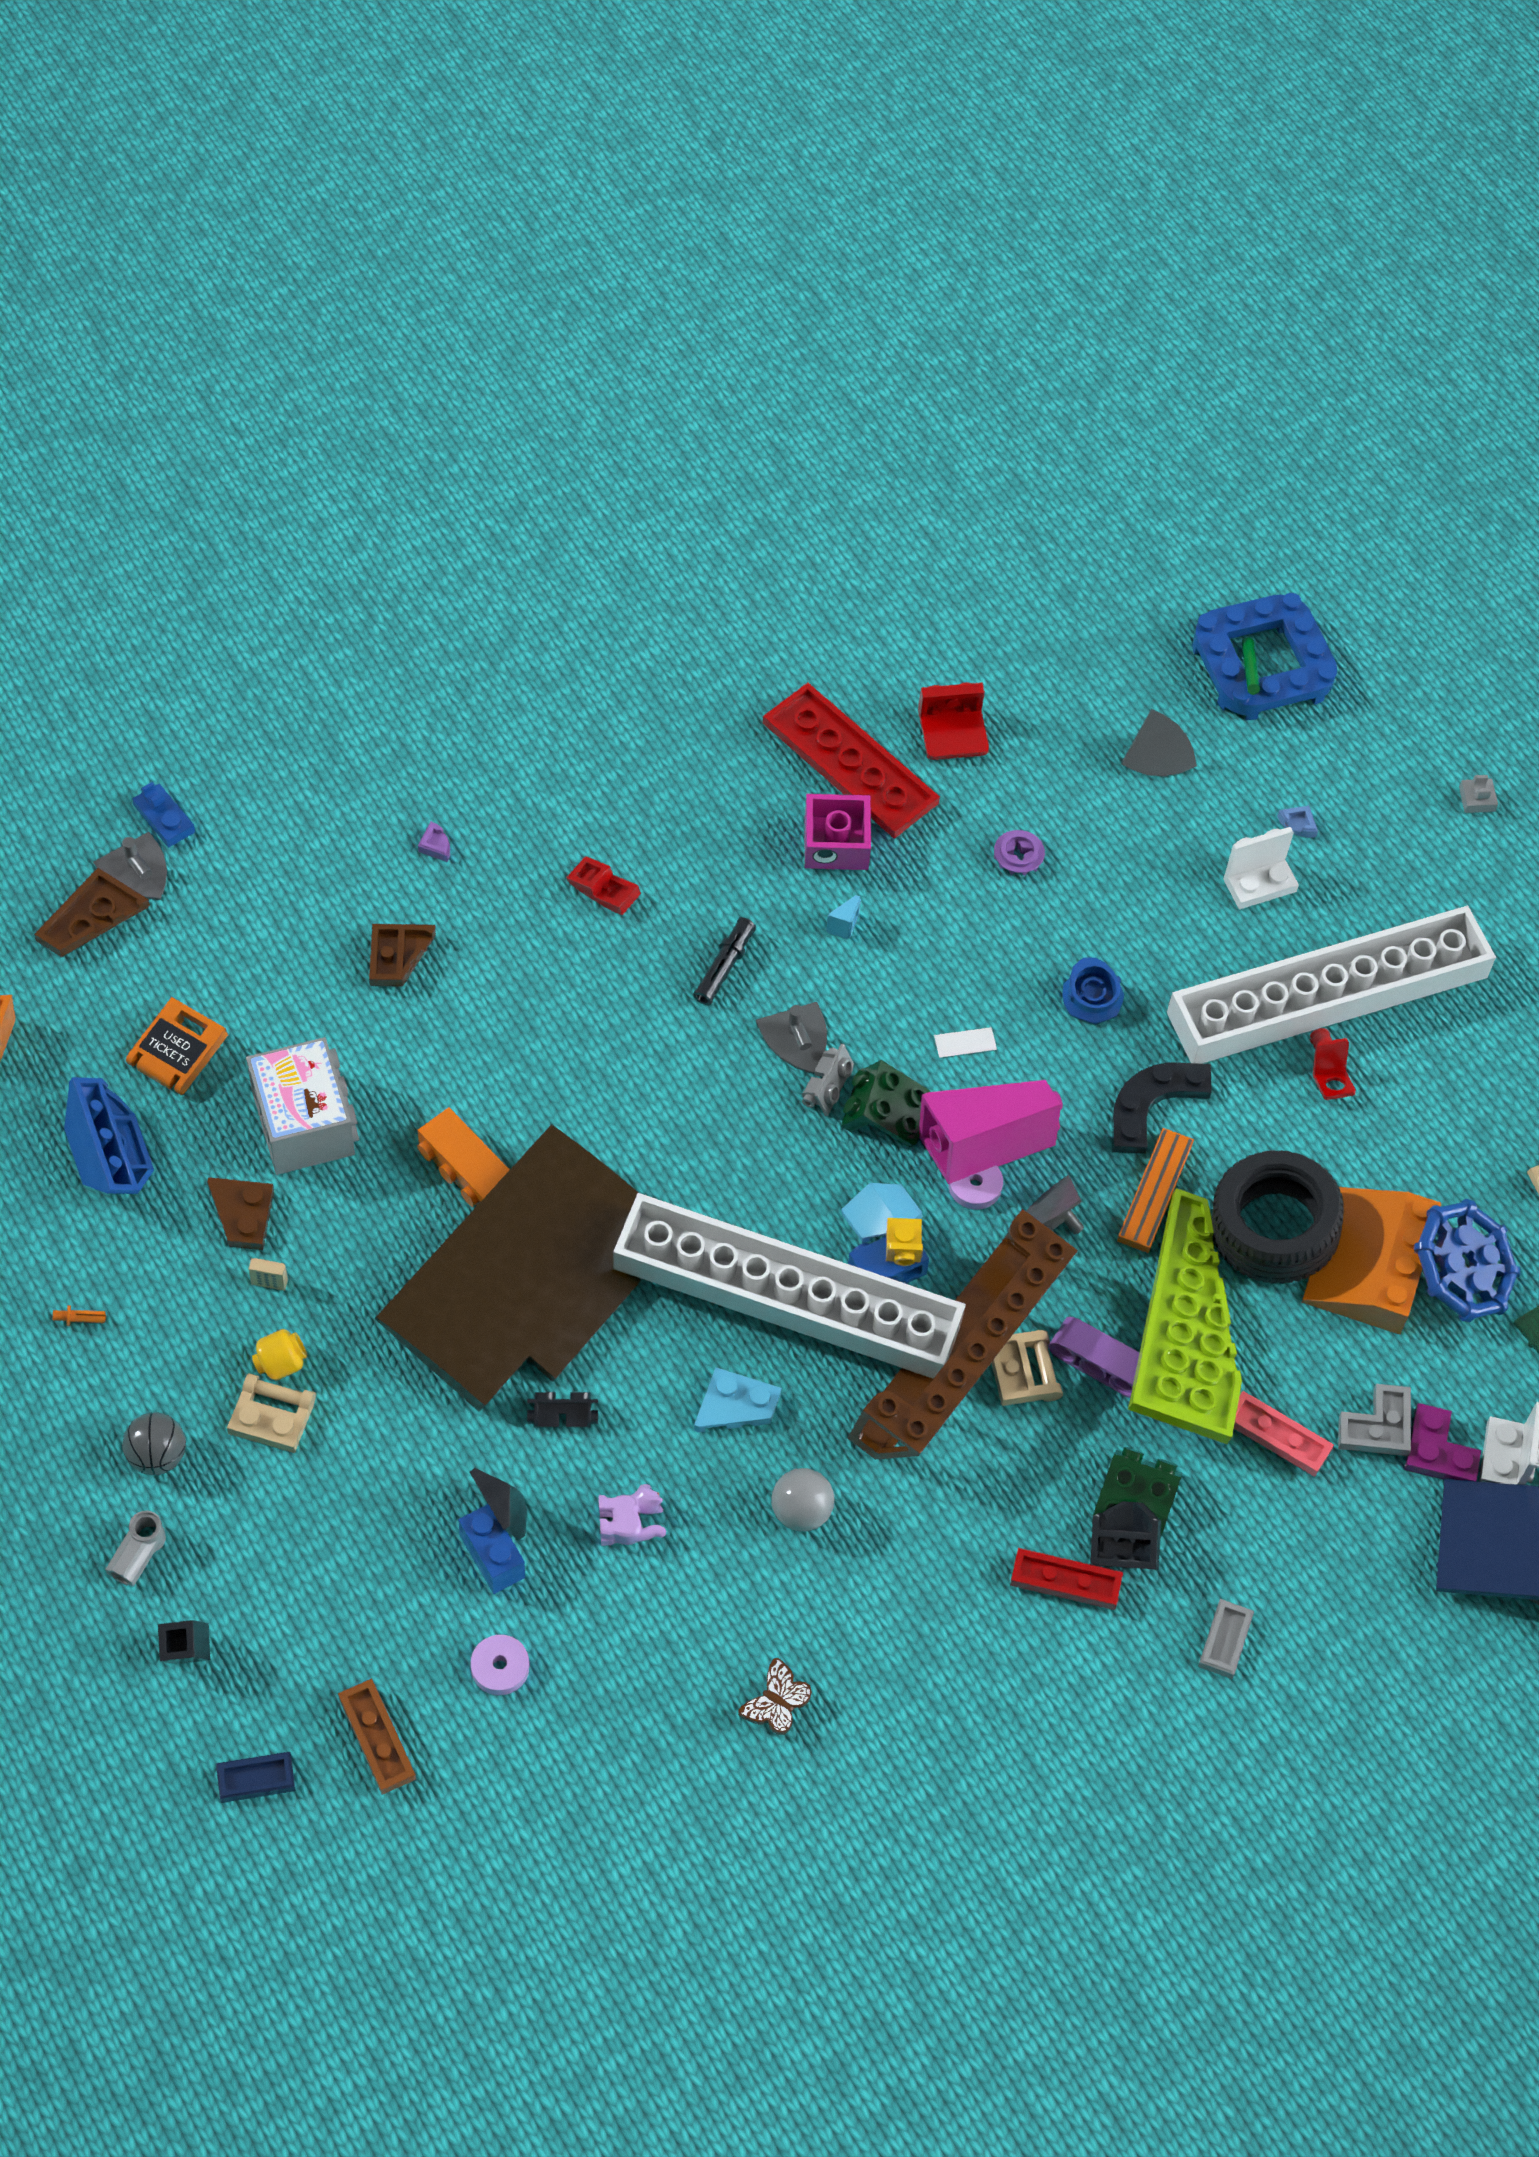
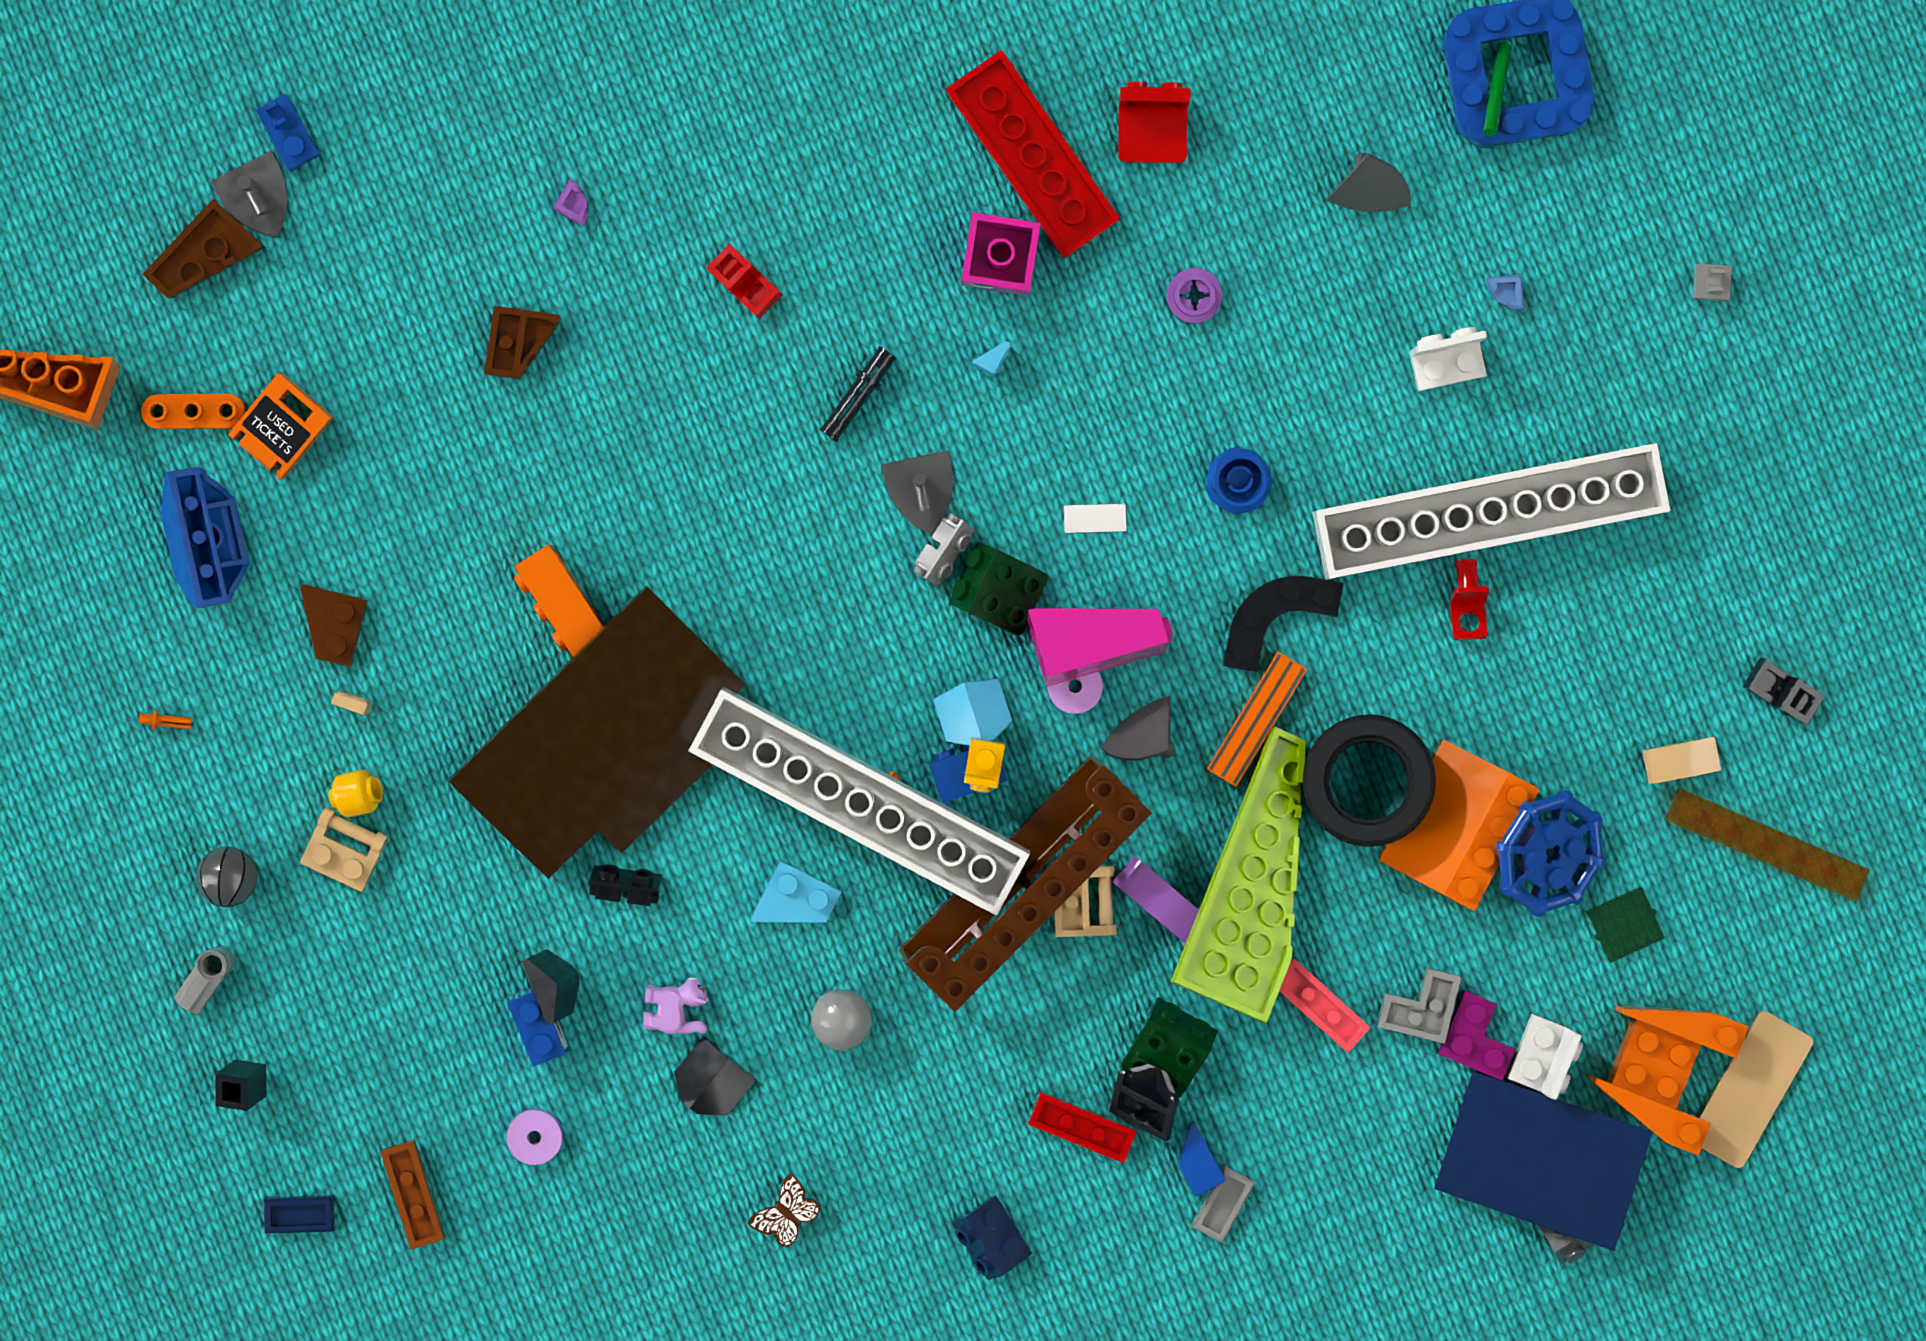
camera: 15 degrees right, 30 degrees up
(75, 1052) = (208, 415): none -> orange plate
(303, 1105) = (399, 523): container -> none
(679, 1583) = (711, 1080): none -> black slope
(994, 1702) = (991, 1238): none -> dark blue bracket
(1193, 1597) = (1198, 1163): none -> blue slope

